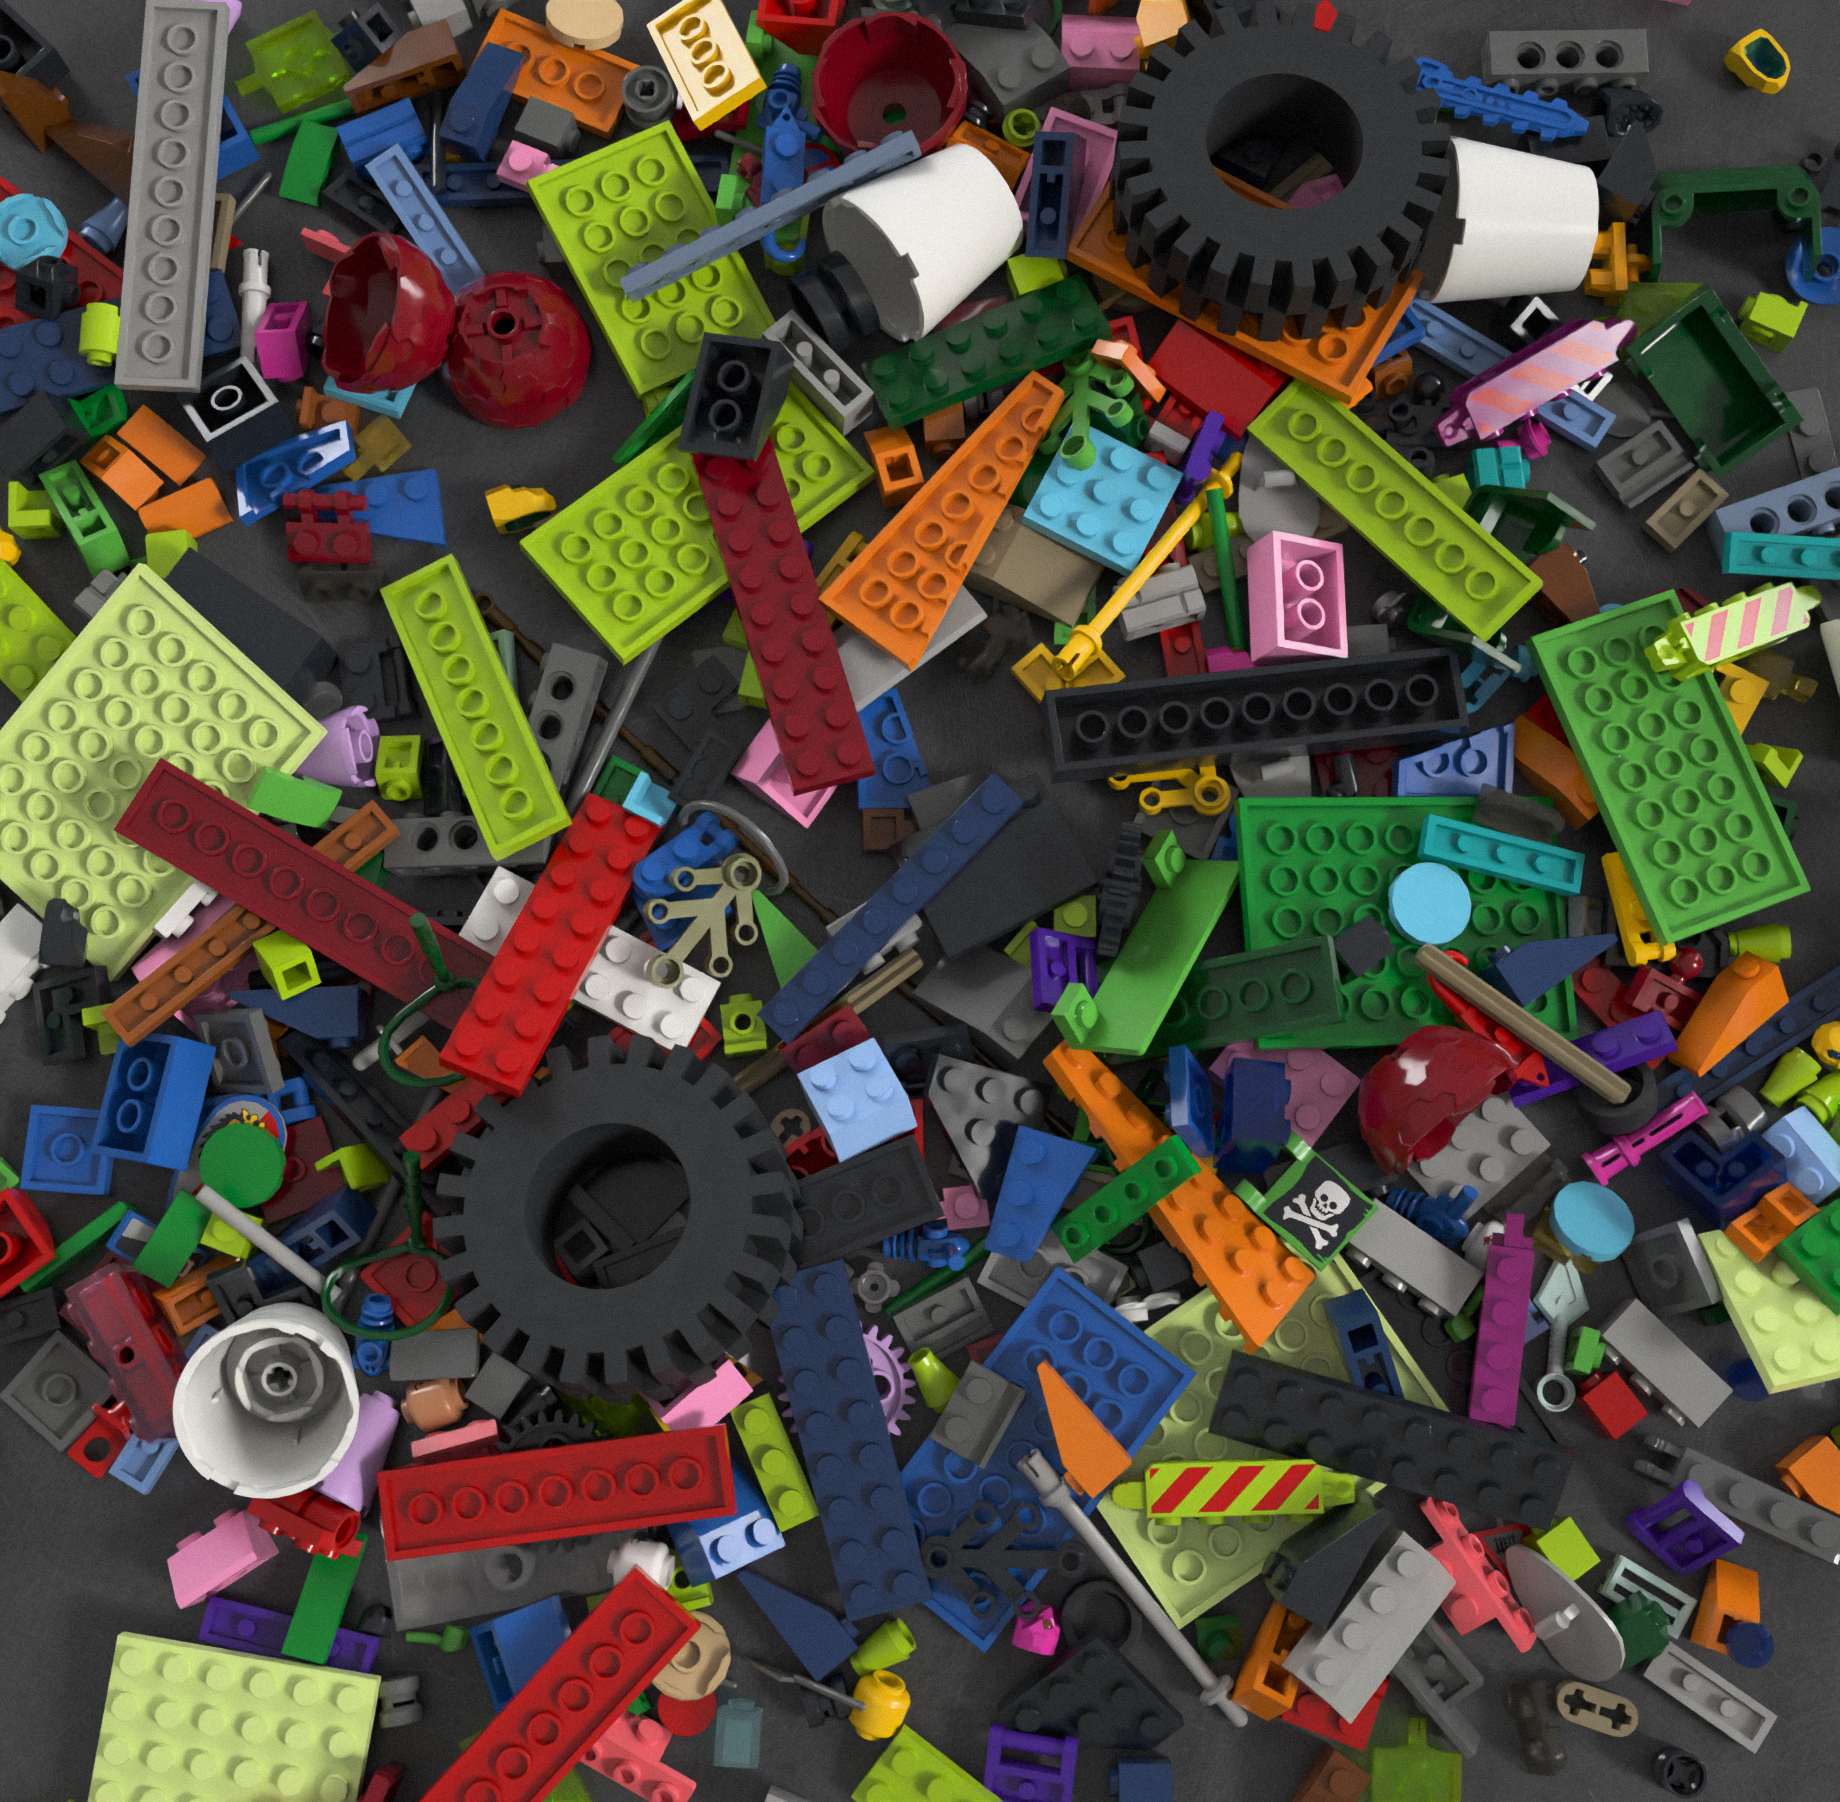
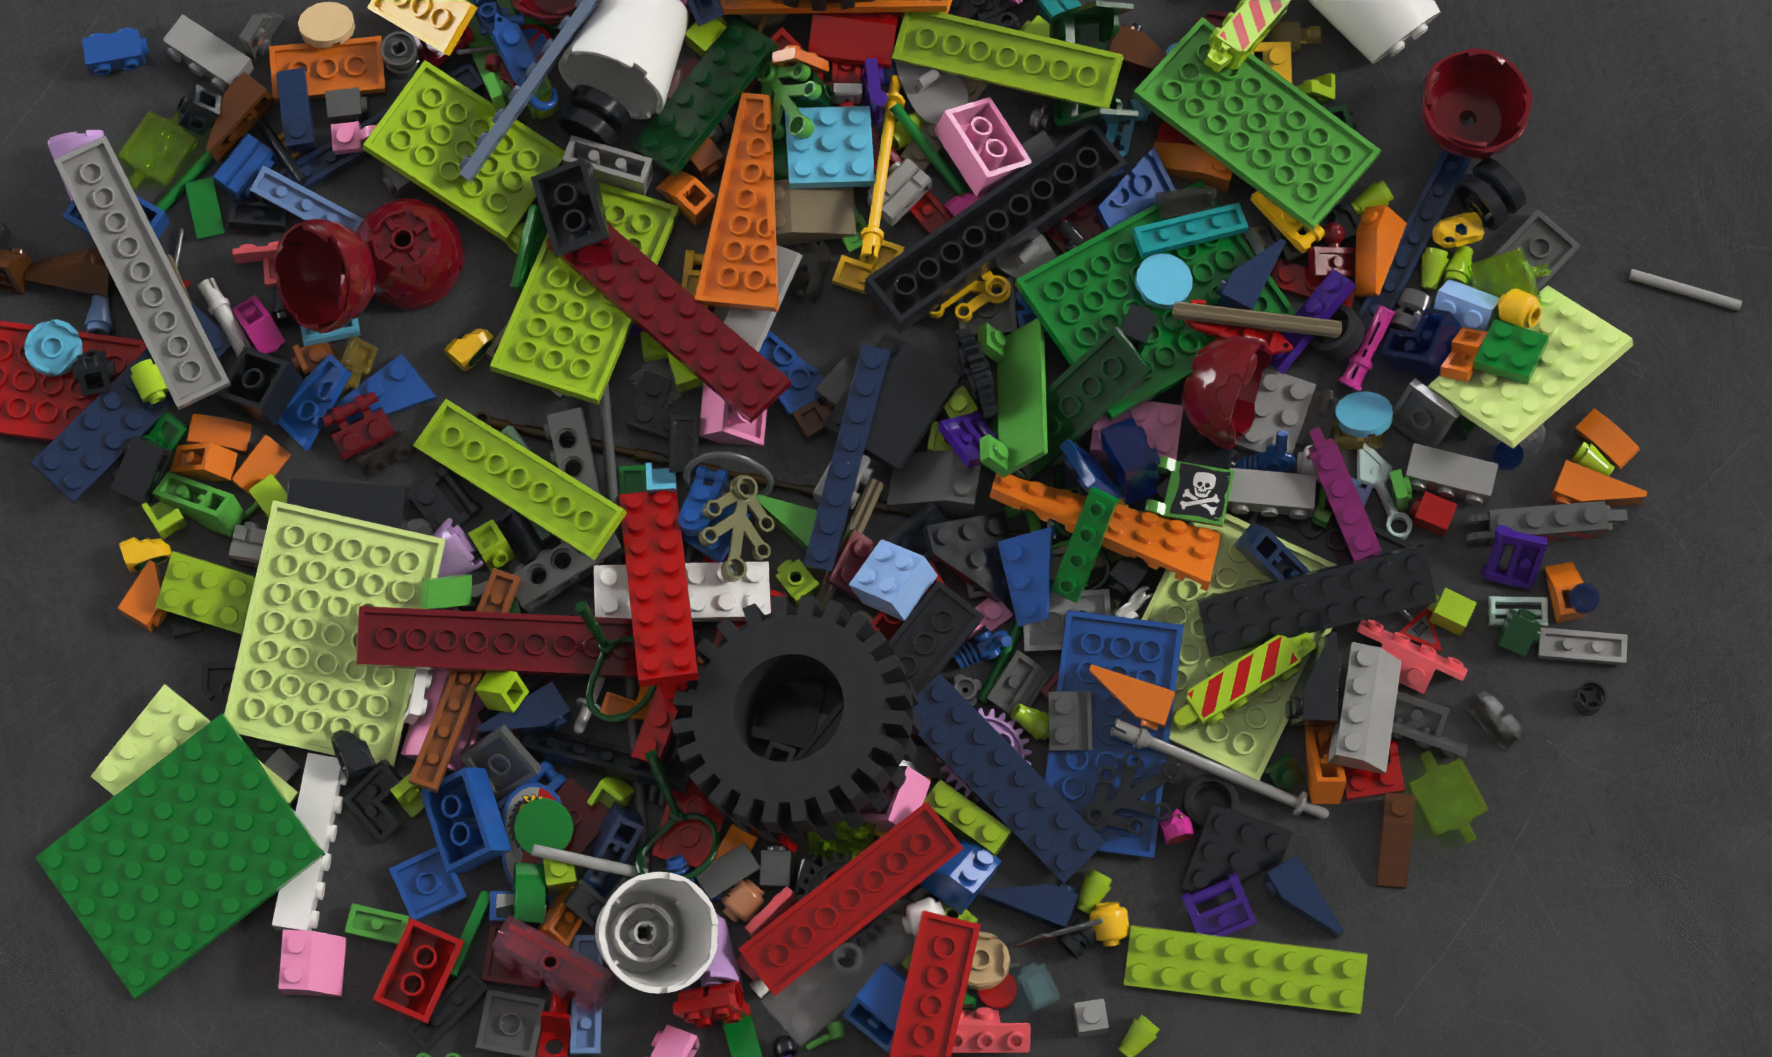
camera: 30 degrees left, 5 degrees down
(1565, 1616) = (1476, 645): light grey shield -> none
(1591, 1717) = (1521, 684): dark tan beam -> none

